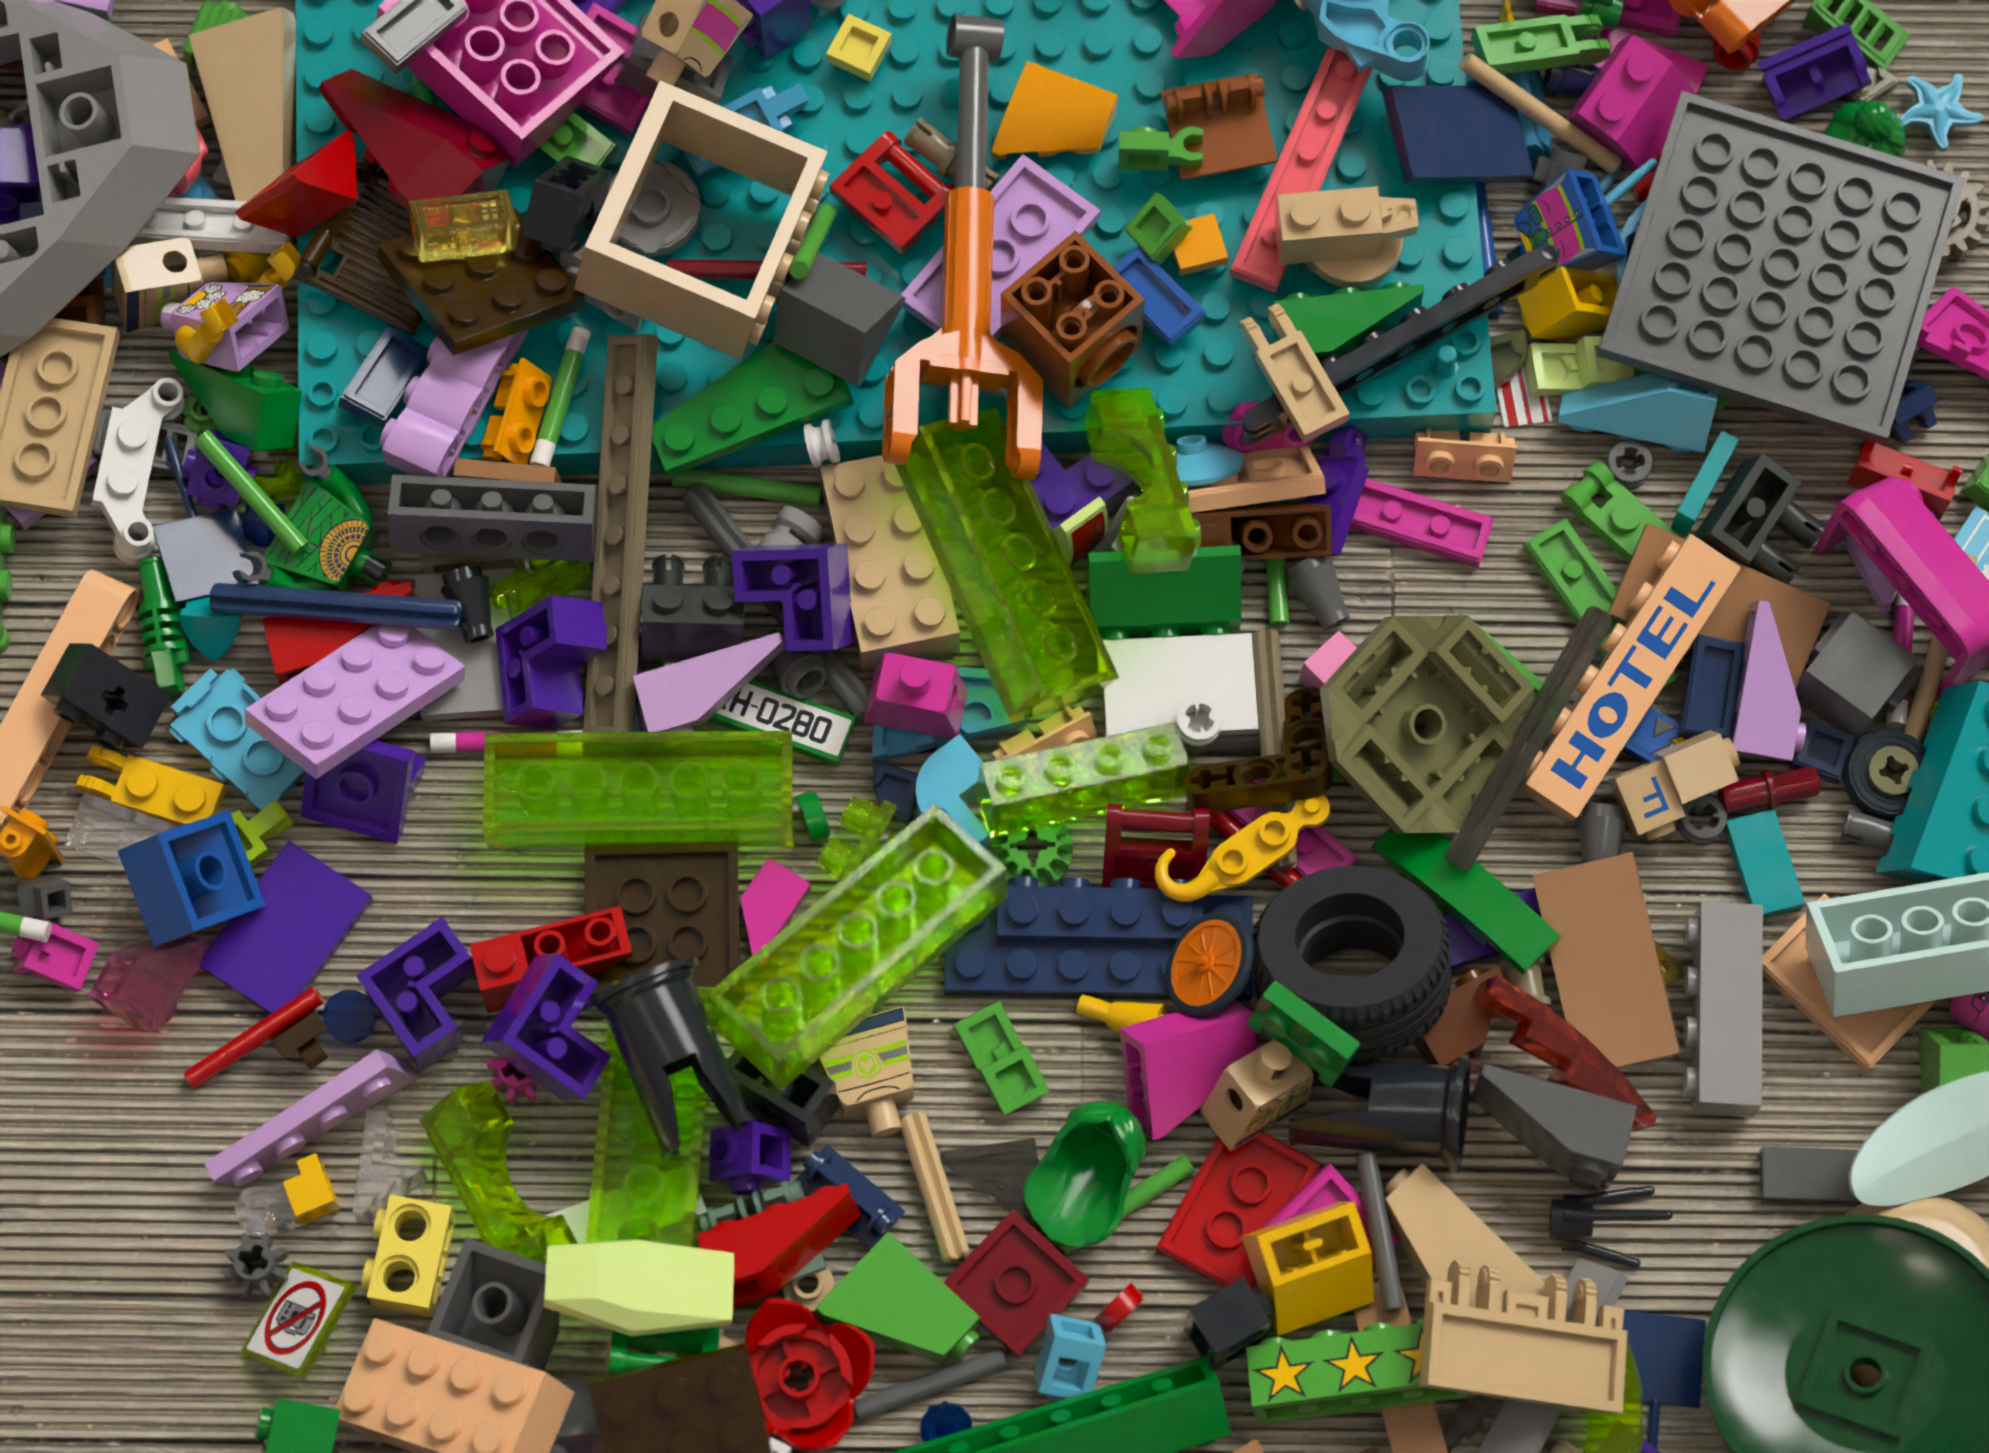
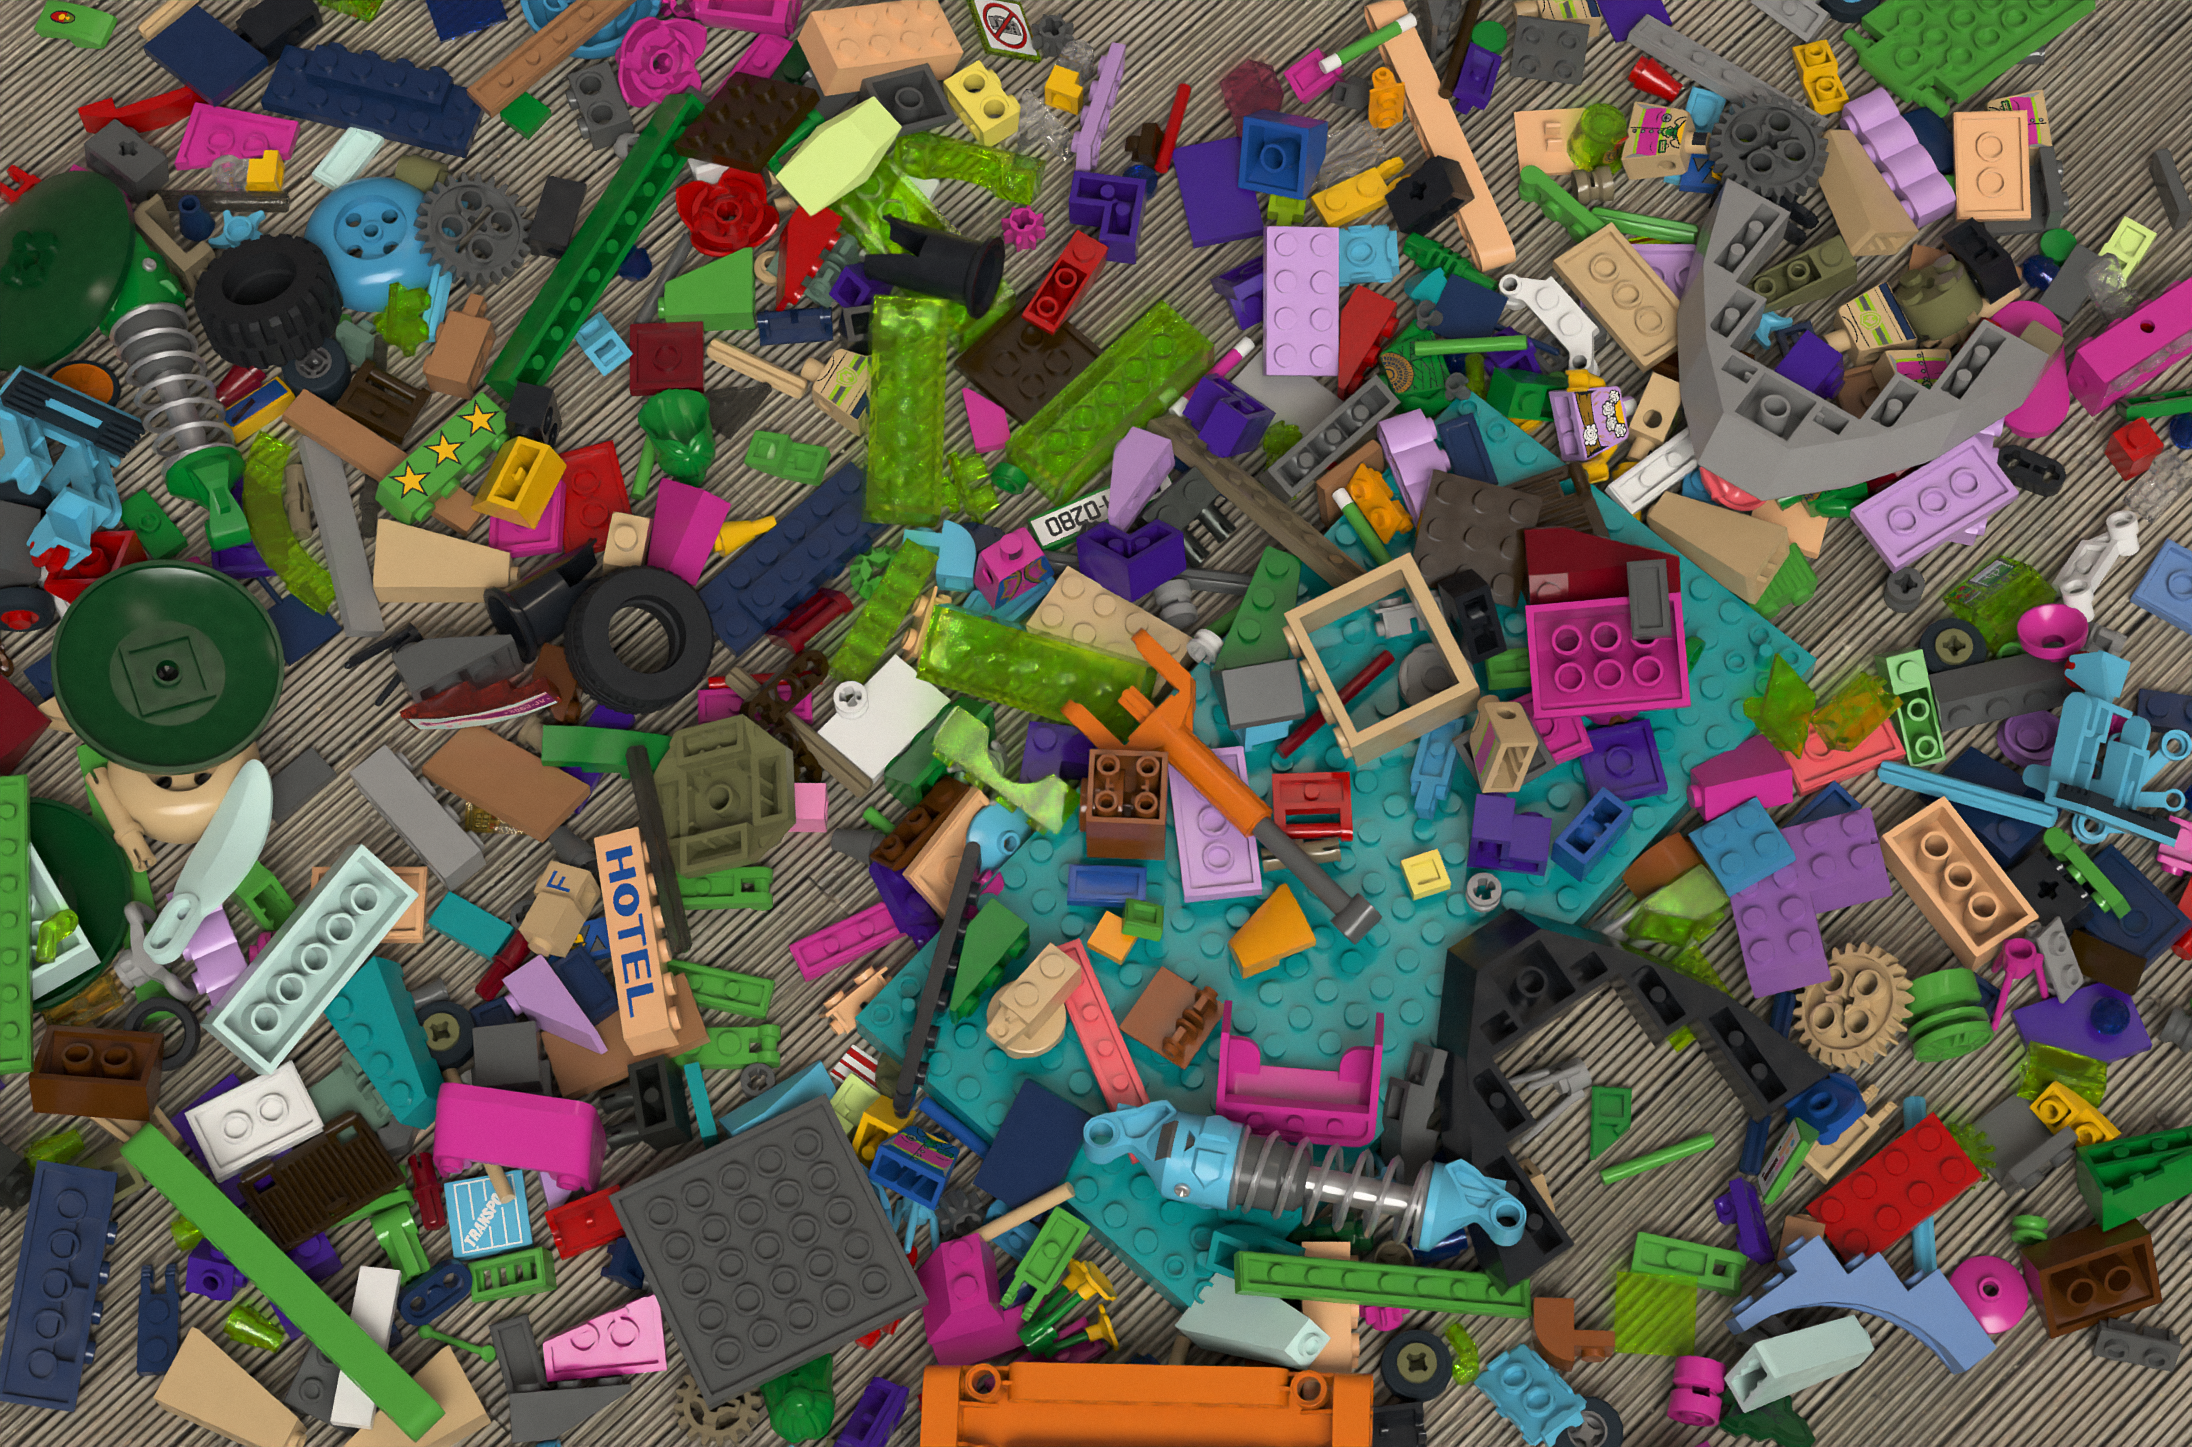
camera: 140 degrees right, 5 degrees down
(307, 191) = (1625, 502): red slope -> none
(335, 606) = (1363, 336): dark blue axle -> none
(463, 225) = (1507, 541): clear yellow slope -> none
(473, 593) = (1301, 410): black cone -> none
(537, 1033) = (1024, 226): dark purple brick -> none
(812, 241) = (1317, 718): bright green bar -> none
(1082, 531) = (1018, 734): slope -> none
(1119, 1308) = (601, 393): red tile -> none
(1153, 150) = (1195, 960): bright green plate -> none
(1210, 964) = (715, 575): orange wheel -> none
(1246, 852) = (753, 649): yellow piece -> none
(1295, 376) = (970, 883): tan hinge -> none
(1304, 1032) = (605, 555): green plate -> none
(1380, 1232) = (497, 538): dark grey bar -> none
(1527, 1347) = (360, 527): tan hinge -> none

